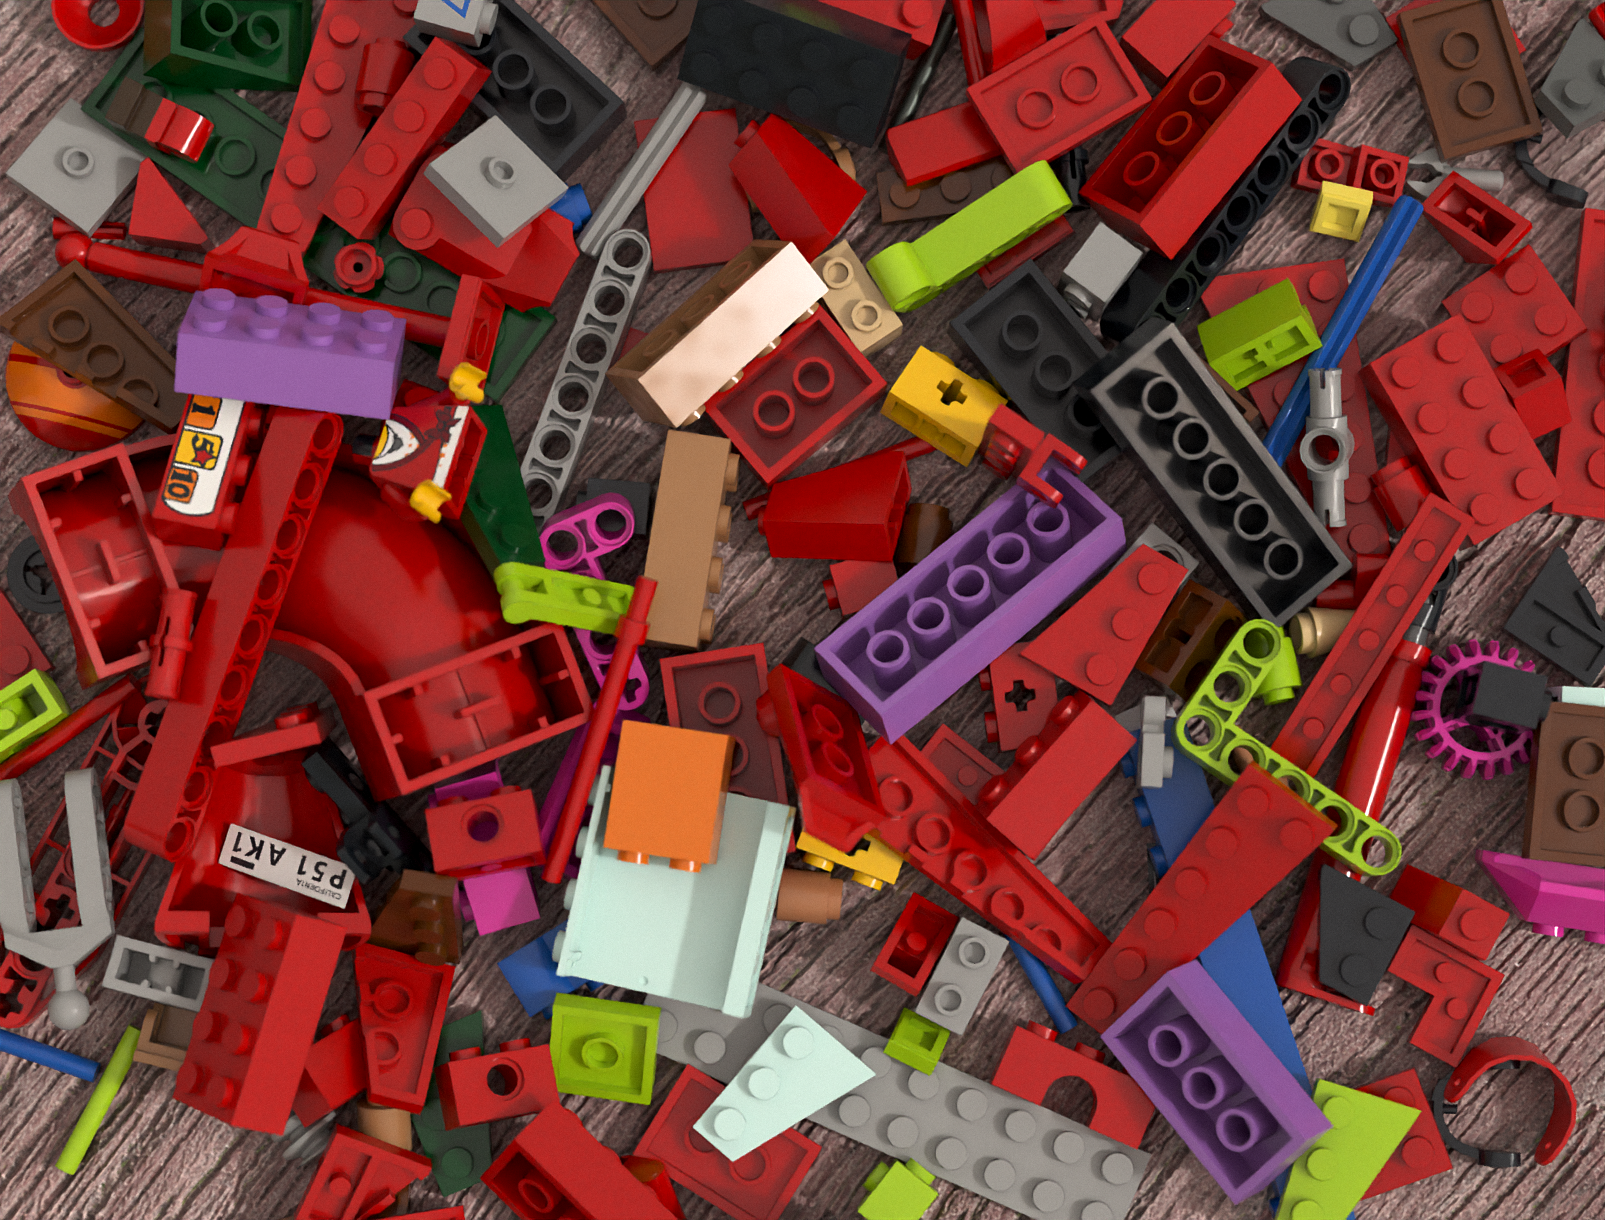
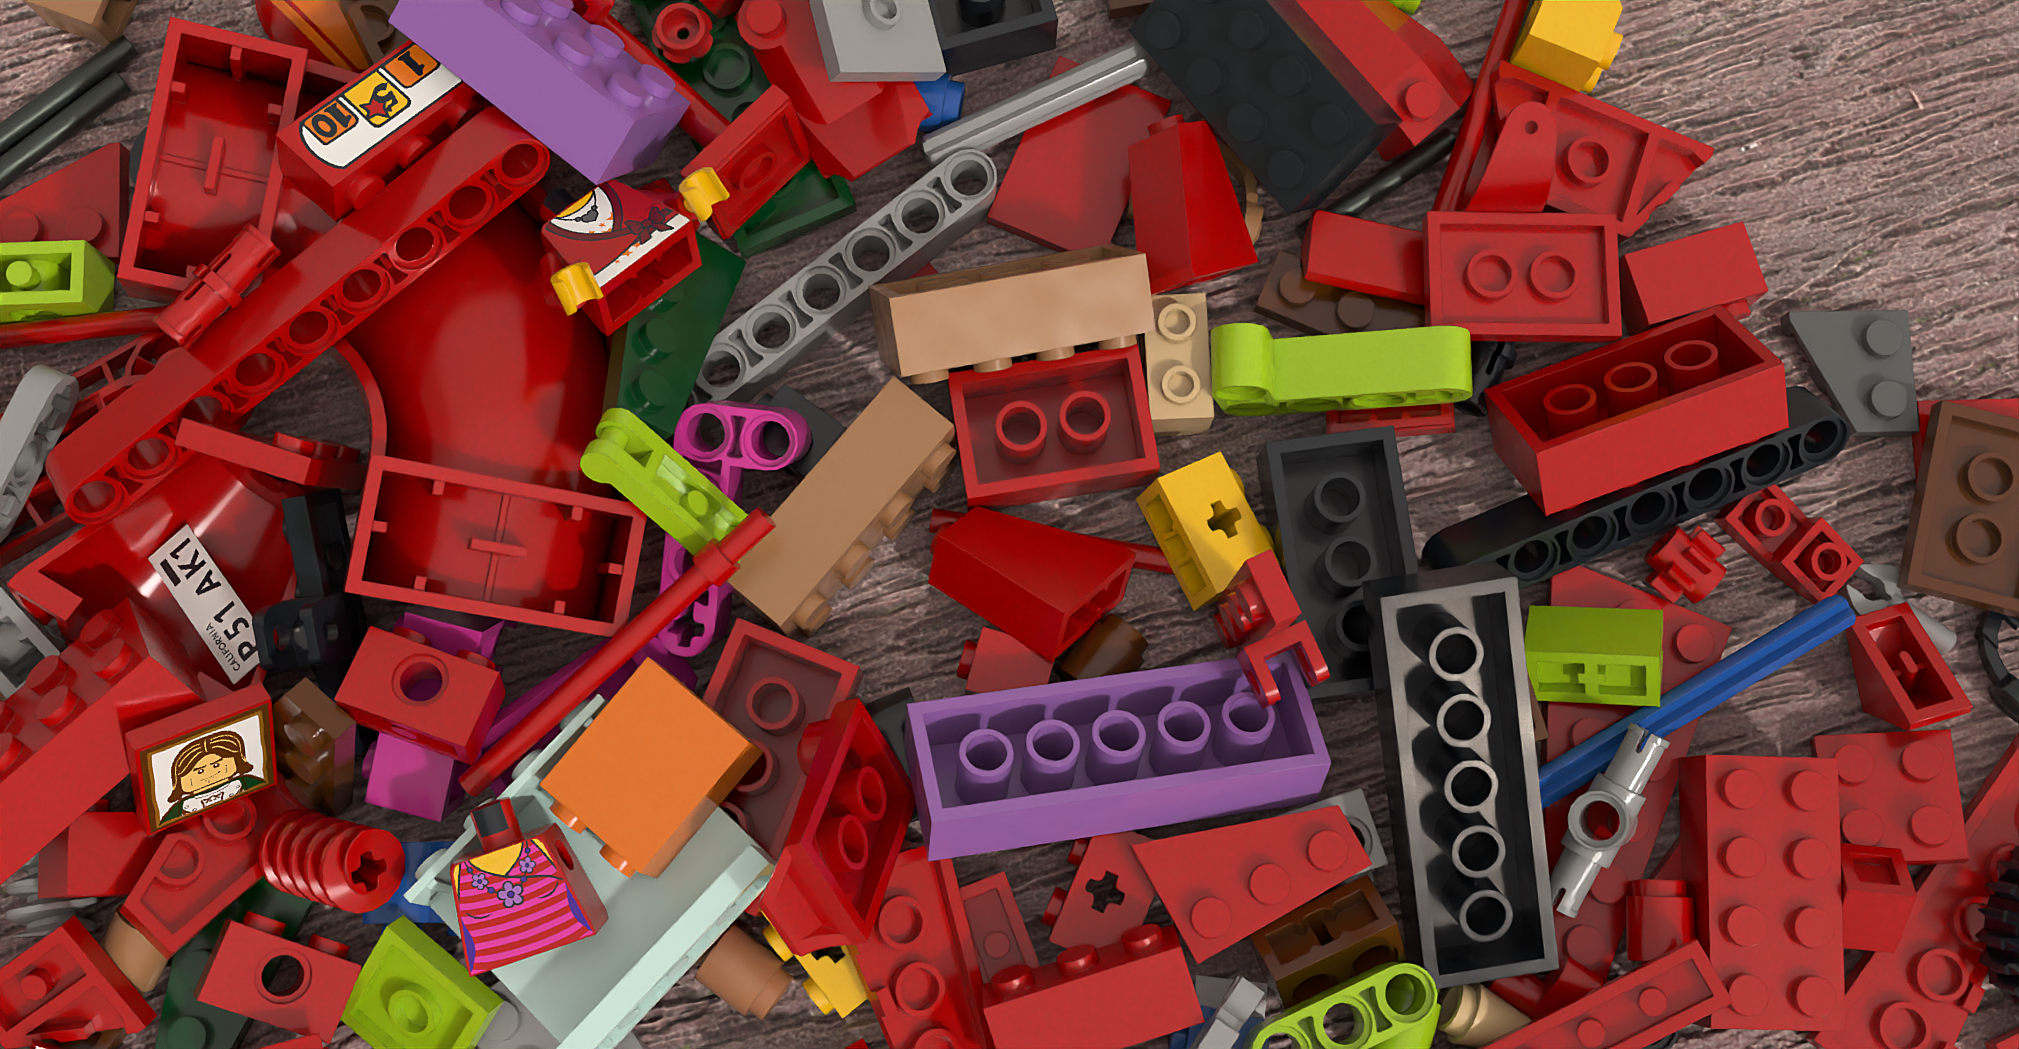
camera: 25 degrees right, 5 degrees down
(362, 966) = (202, 758): none -> tile
(486, 985) = (331, 860): none -> red piece
(633, 924) = (520, 891): none -> torso
(1097, 272) = (1458, 483): light grey brick -> none
(1286, 234) = (1685, 564): none -> red gear
(1341, 211) = (1759, 575): light yellow tile -> none

